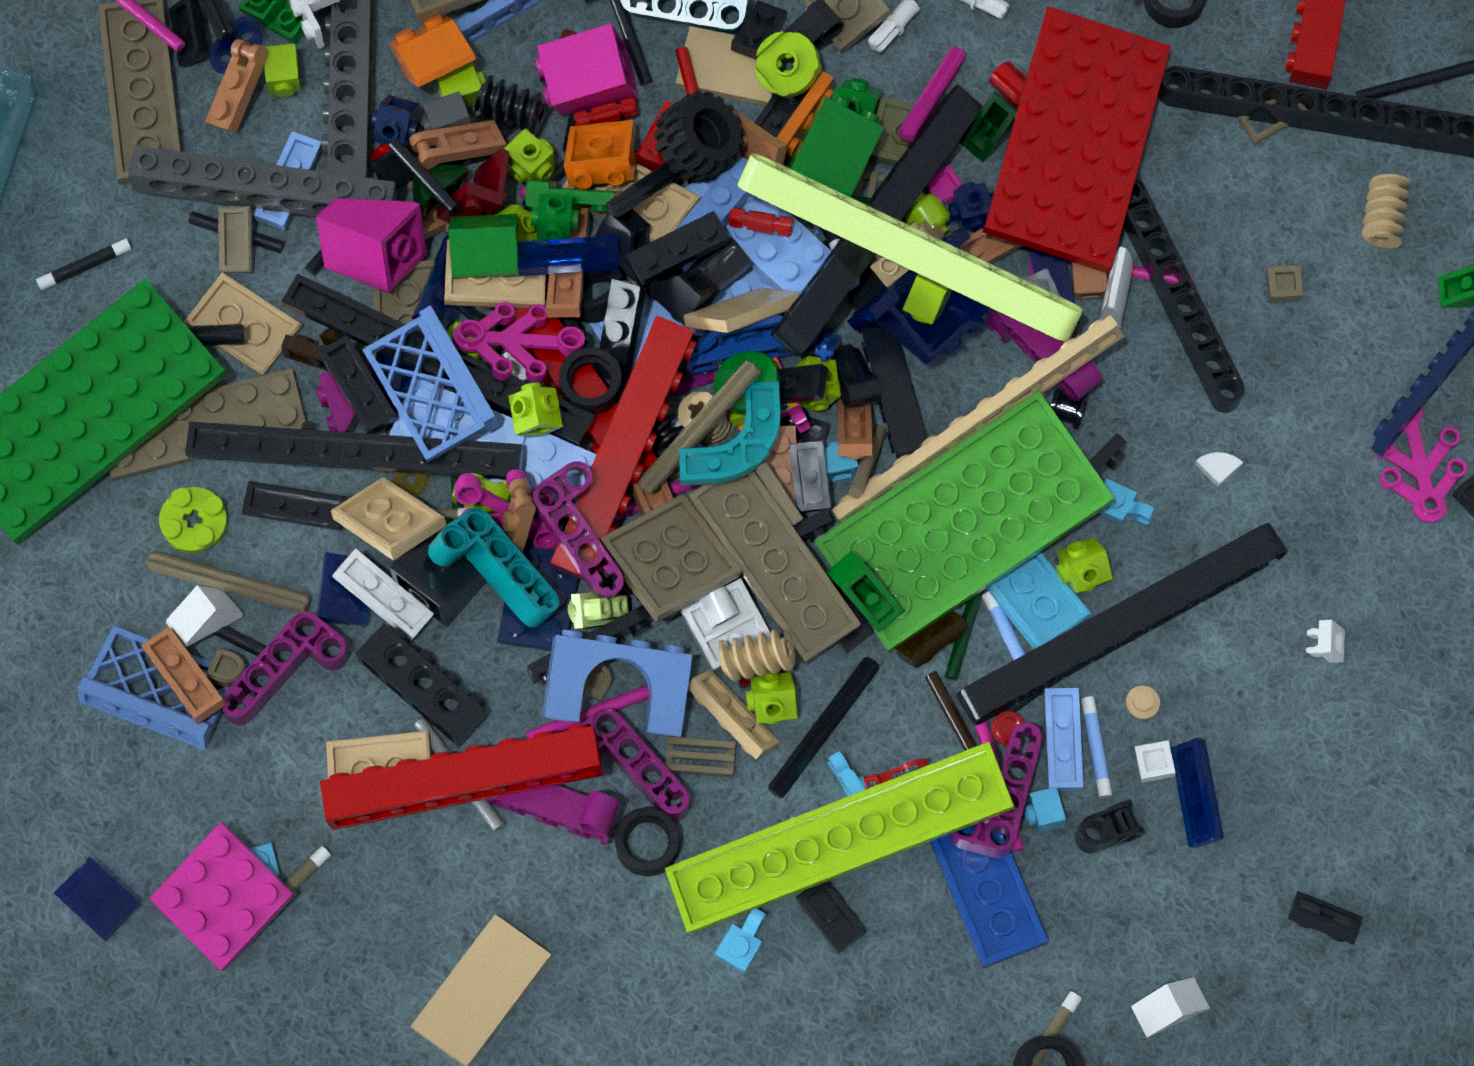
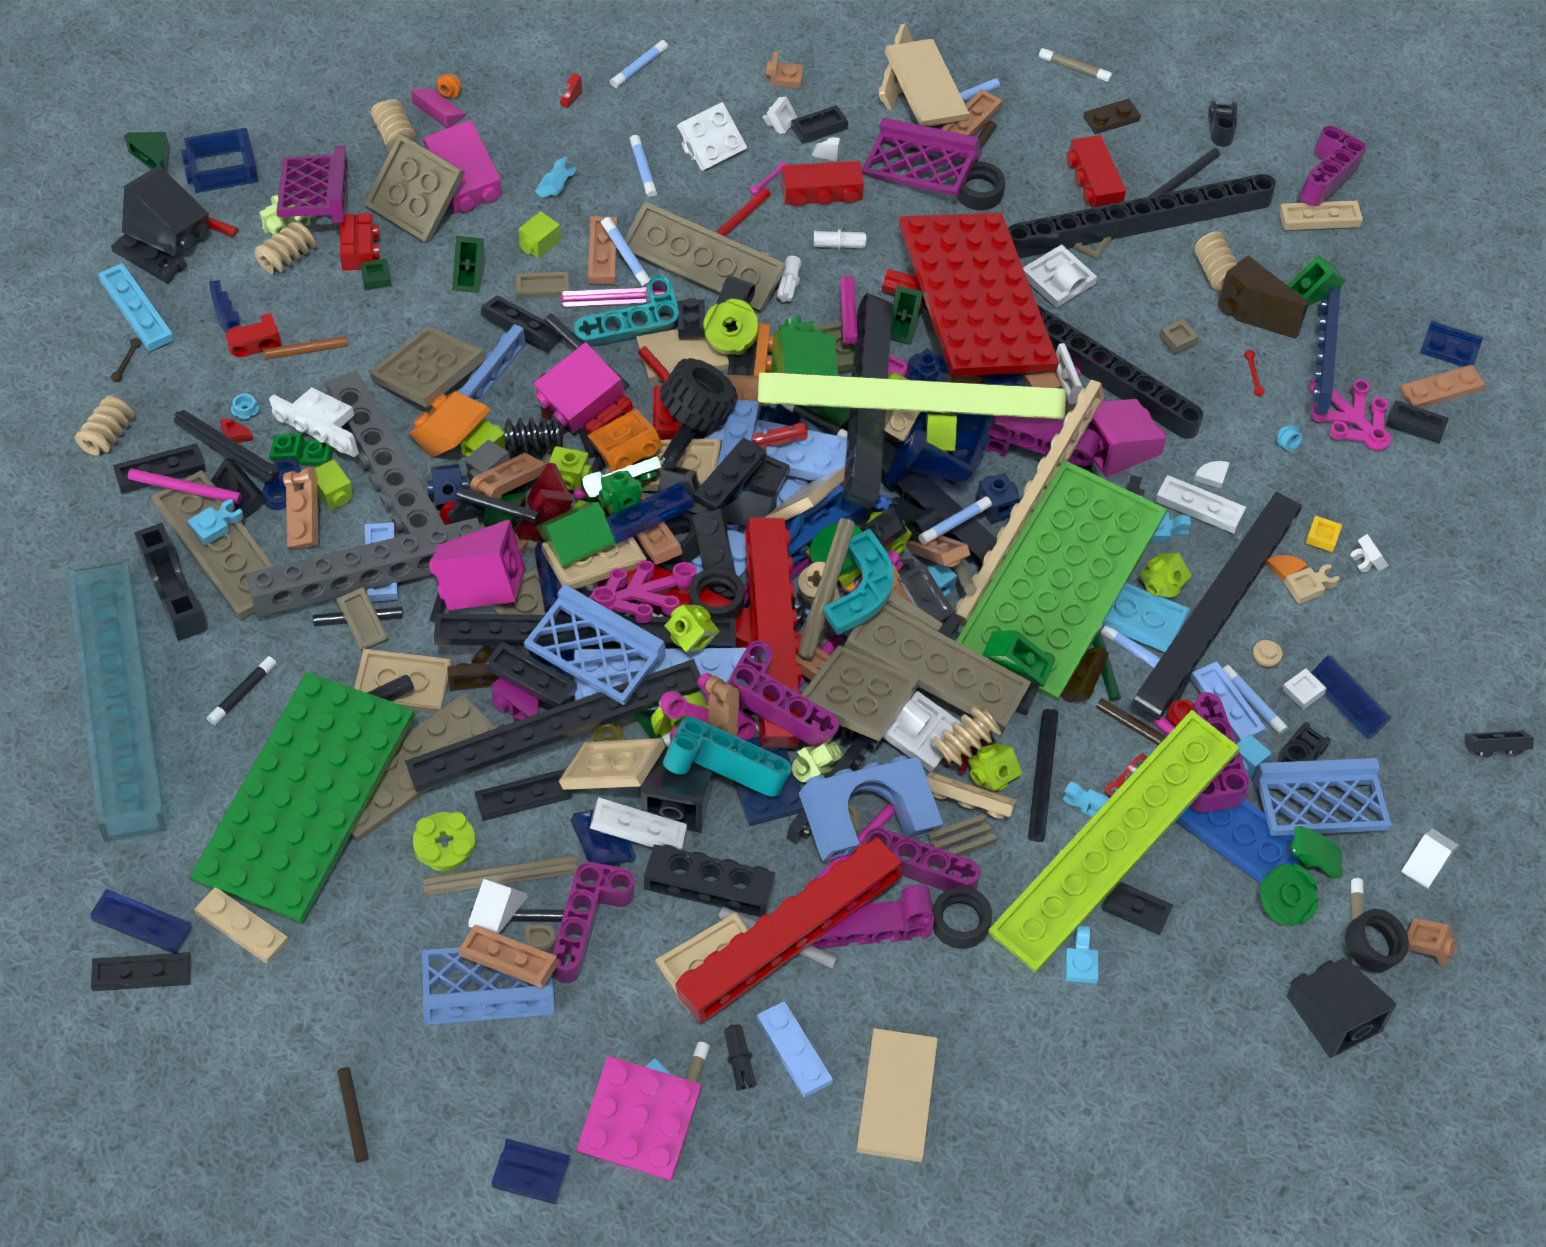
camera: 30 degrees left, 15 degrees down
(71, 93) = (169, 582): none -> black arch
(138, 64) = (213, 524): none -> medium azure plate
(351, 880) = (739, 1056): none -> black axle
(409, 897) = (794, 1049): none -> light blue plate
(892, 402) = (955, 520): none -> light blue bar
(959, 391) = (1002, 496): none -> dark blue brick
(991, 977) = (1289, 894): none -> green tile
(1047, 947) = (1318, 851): none -> green slope
(1103, 864) = (1318, 777): none -> medium blue fence
(1141, 379) = (1125, 435): none -> dark pink slope
(1179, 497) = (1200, 504): none -> white plate
(1195, 149) = (1059, 276): none -> white plate
(1229, 612) = (1285, 565): none -> orange tile
(1235, 644) = (1309, 585): none -> tan plate
(1293, 593) = (1323, 533): none -> yellow plate
(1329, 458) = (1291, 435): none -> medium azure plate
(1335, 388) = (1258, 390): none -> red hinge
(1396, 281) = (1262, 299): none -> dark brown slope

